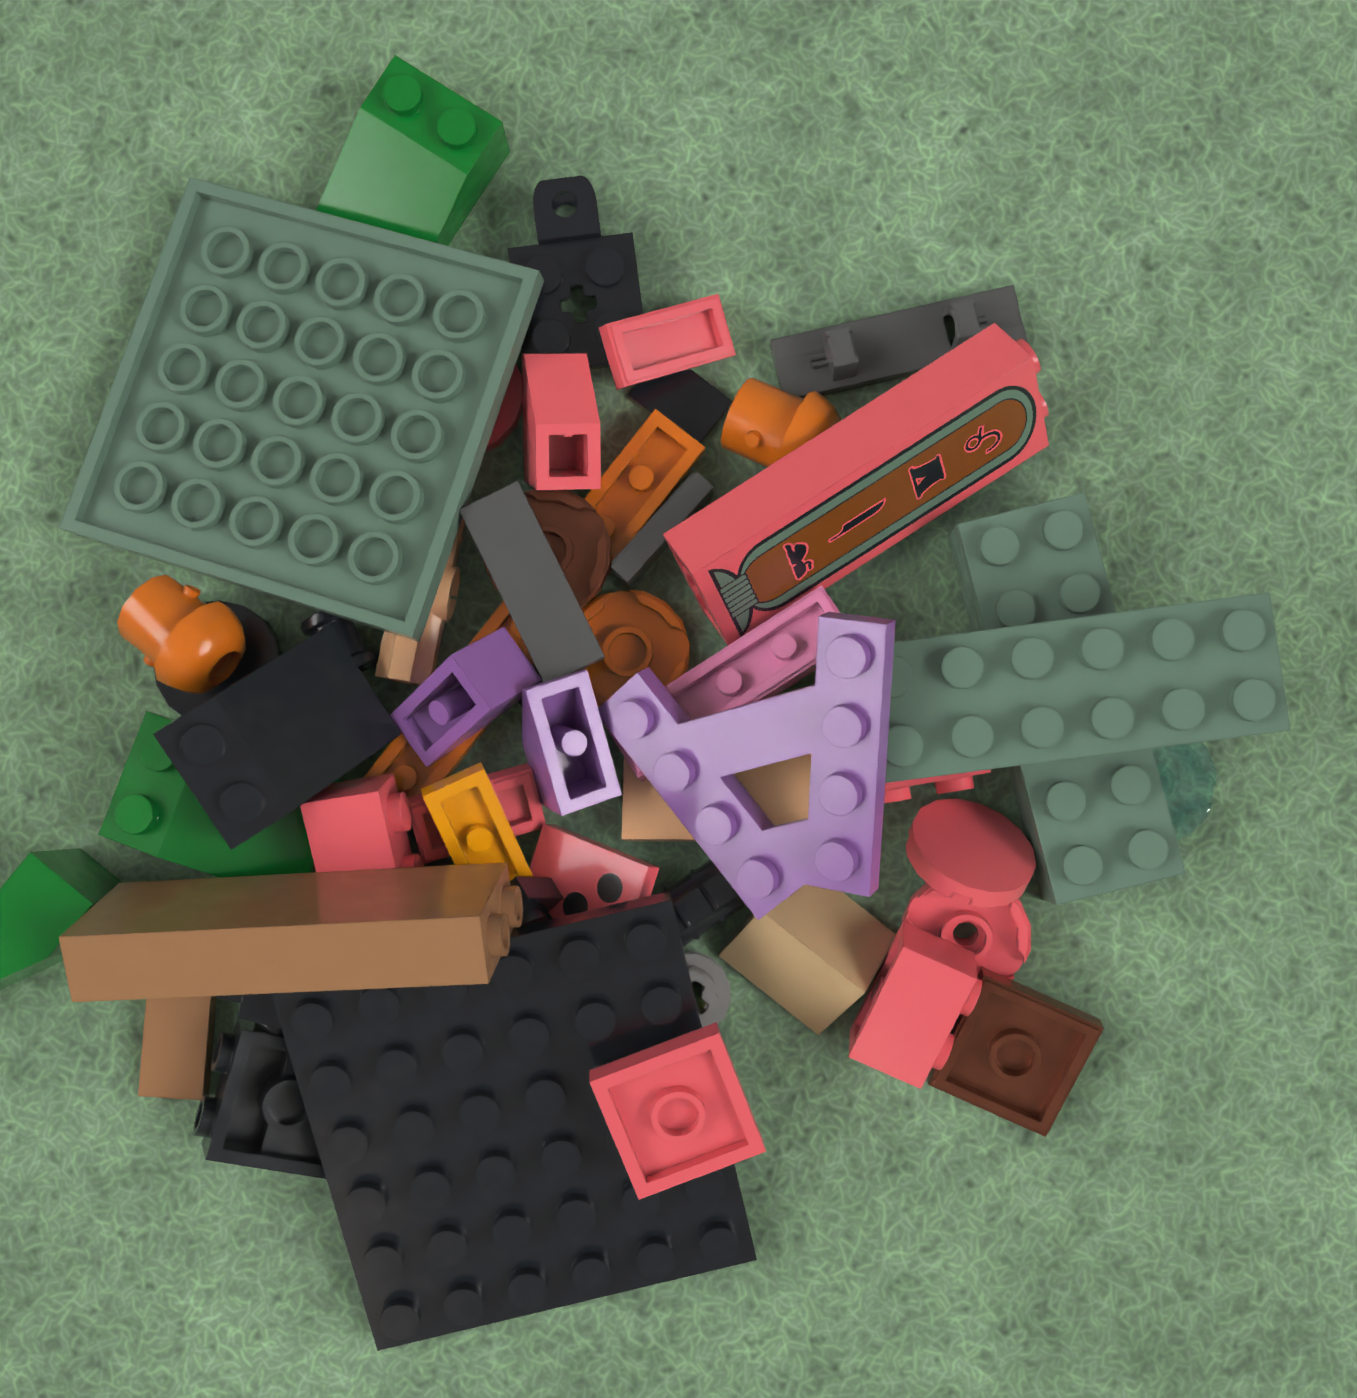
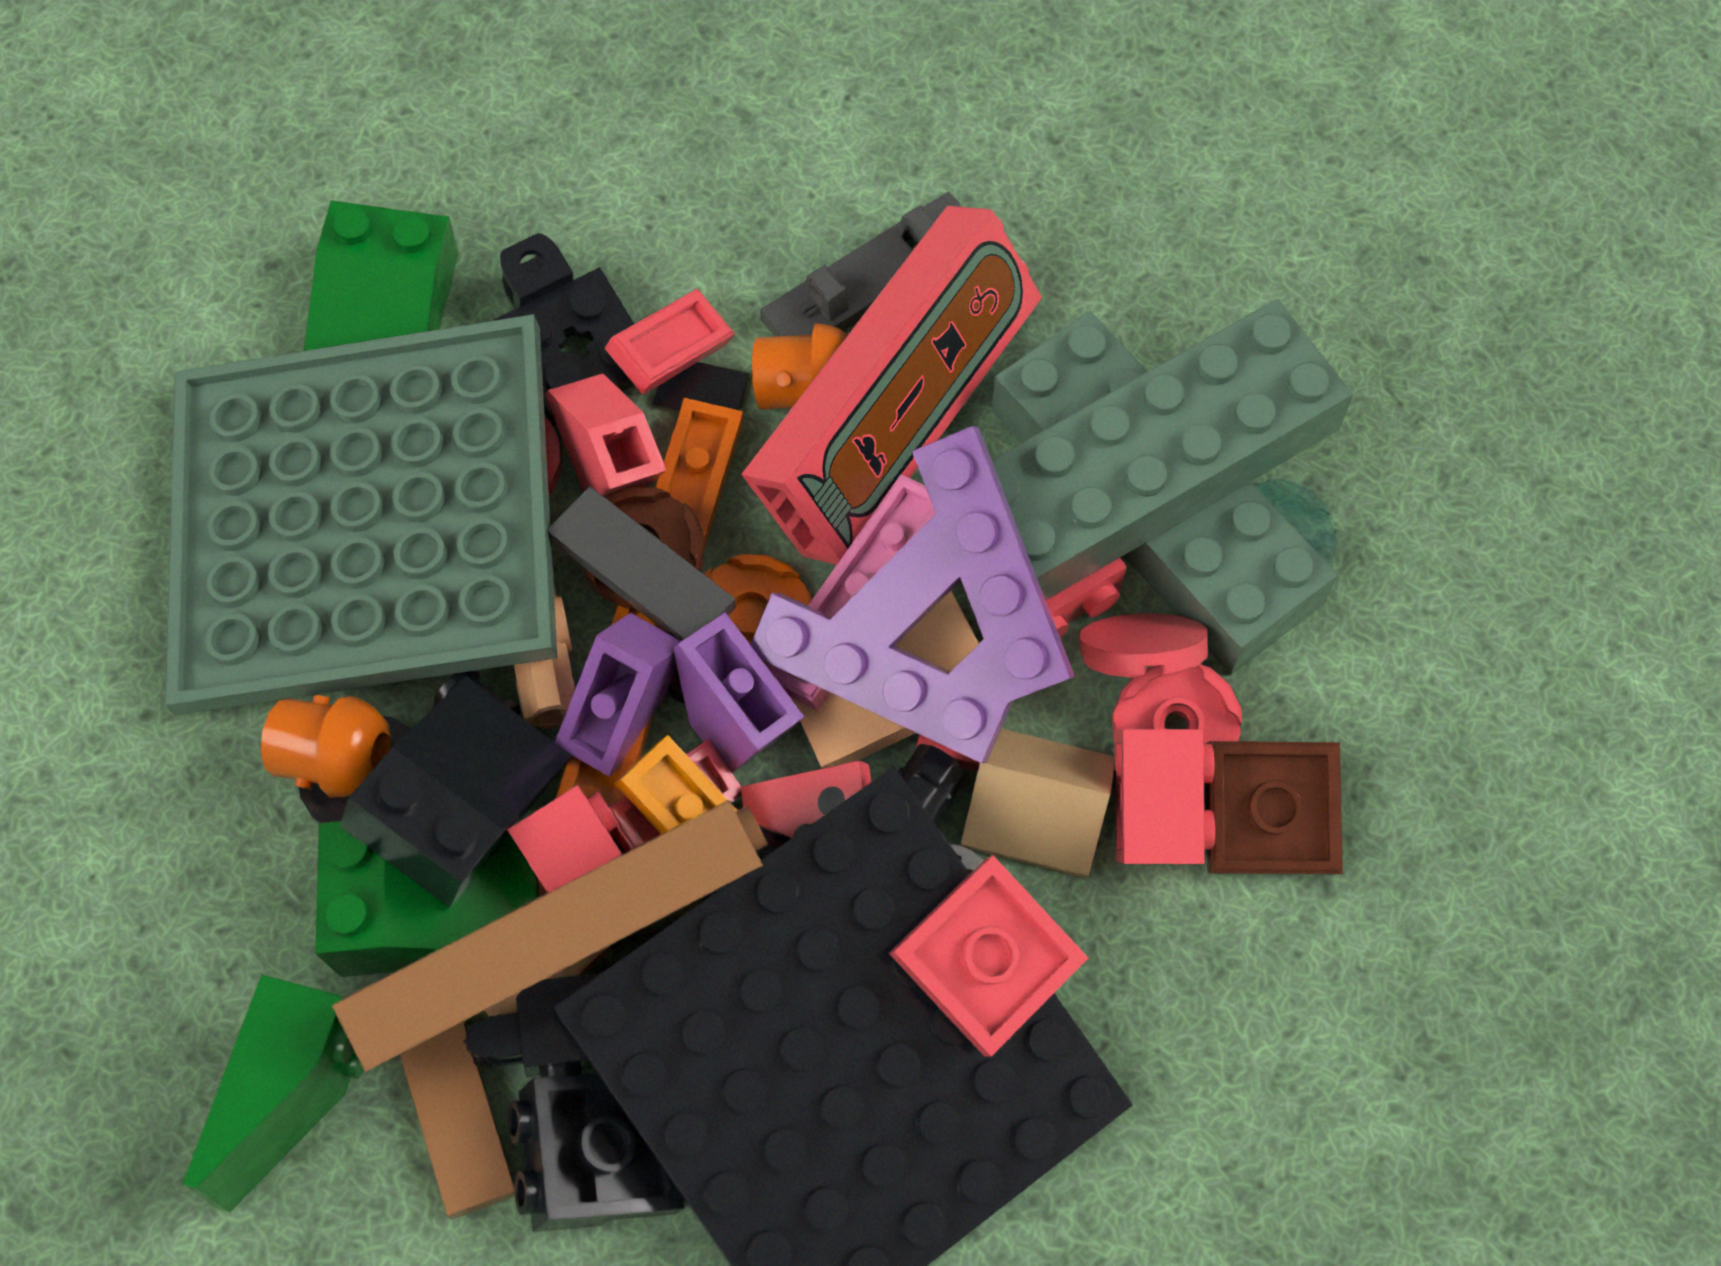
camera: 25 degrees left, 20 degrees down
(649, 541) = (732, 498): dark grey tile -> none

